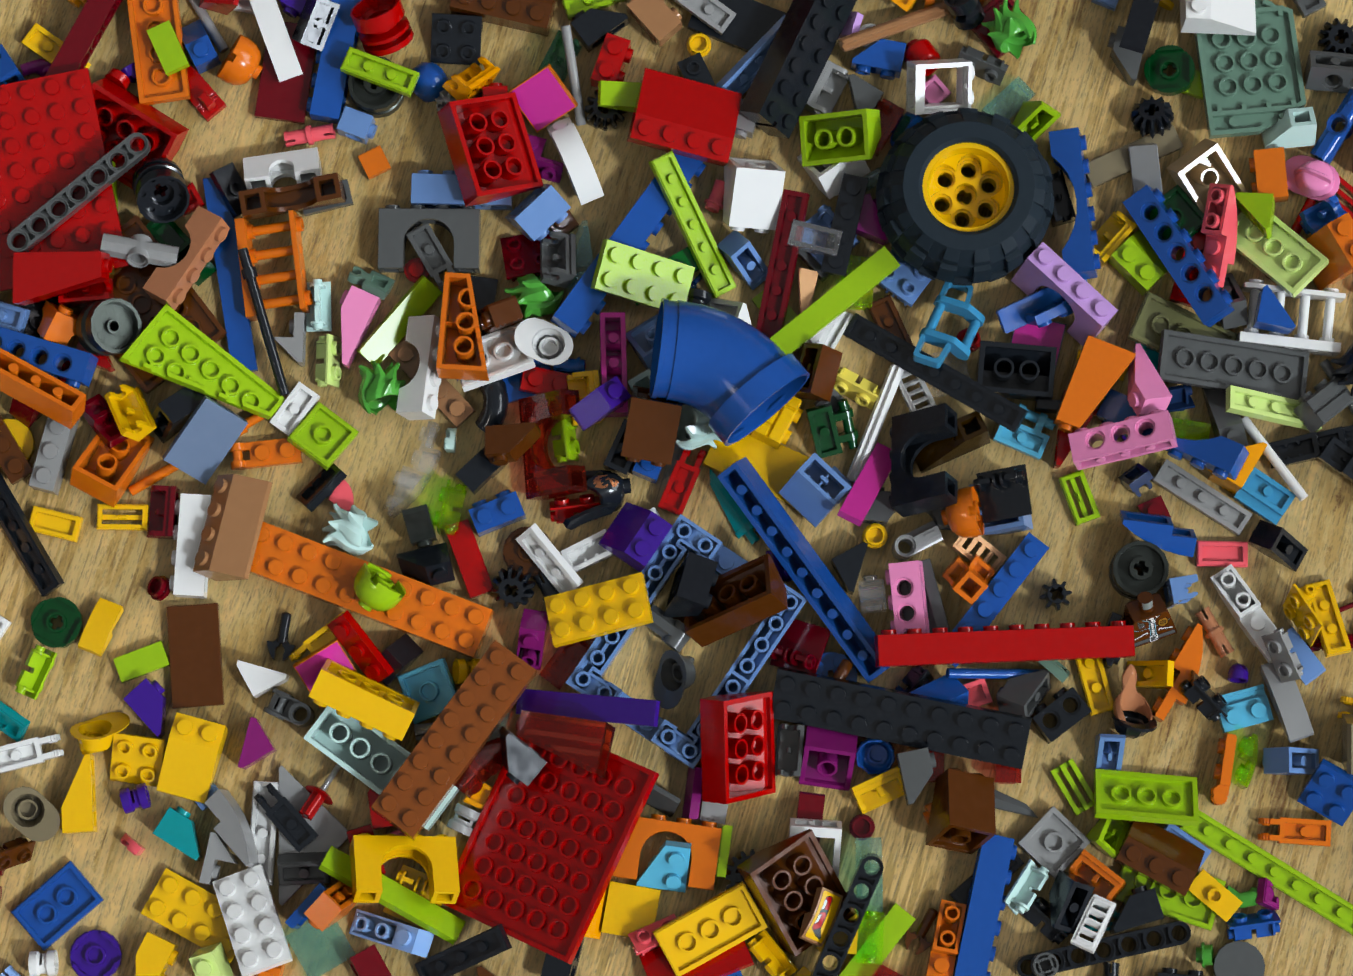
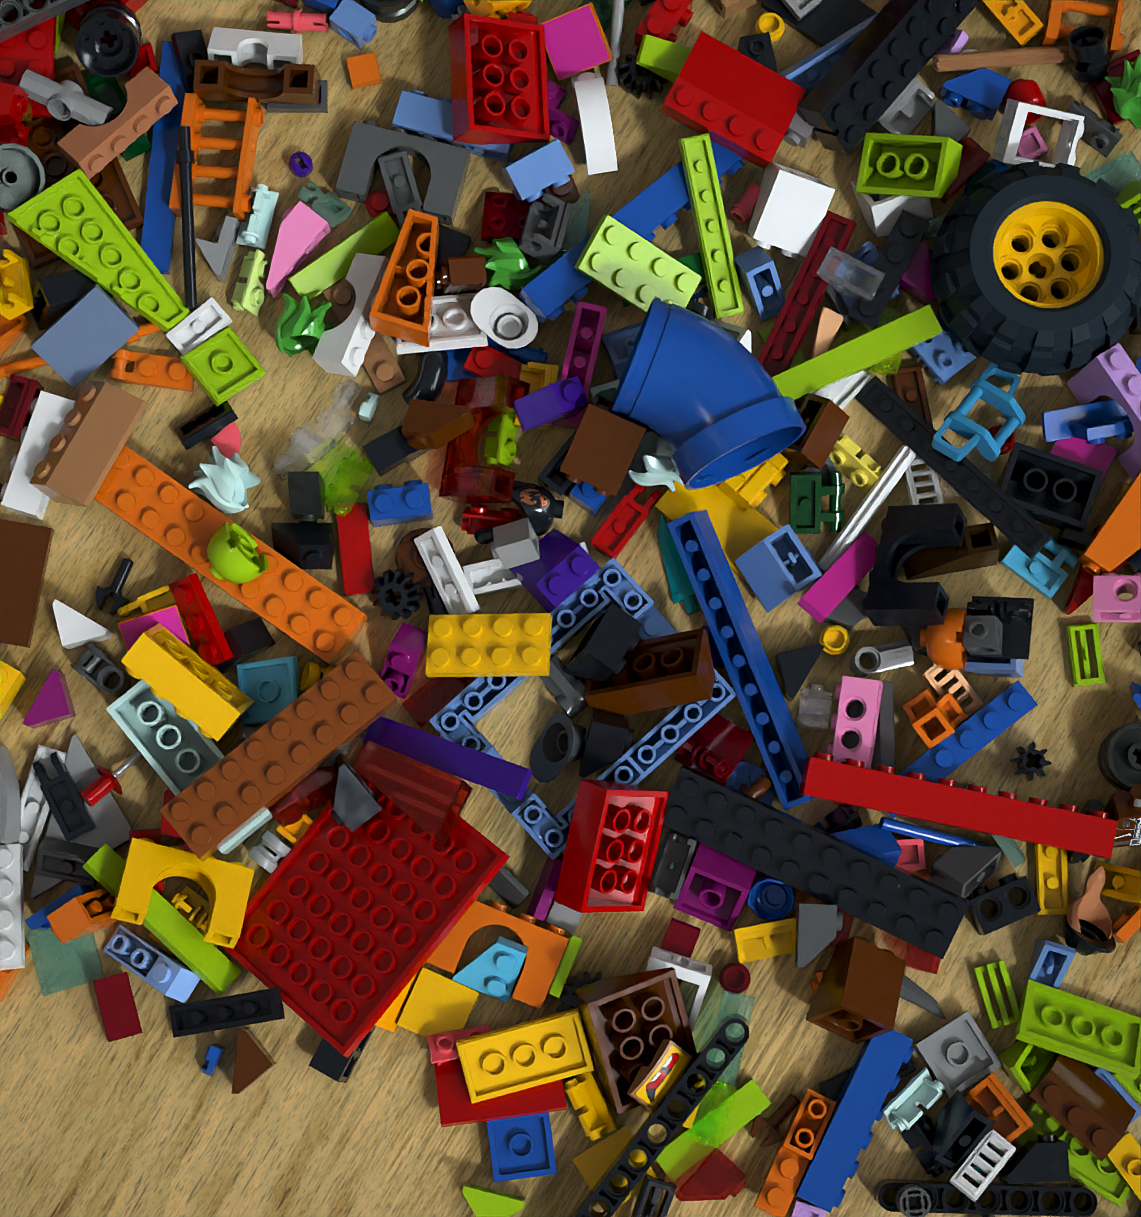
camera: 15 degrees right, 0 degrees up
(338, 257) = (295, 167): none -> dark purple hinge
(599, 522) = (515, 543): none -> light grey brick
(711, 663) = (605, 741): none -> black slope
(991, 503) = (982, 635): none -> dark grey brick

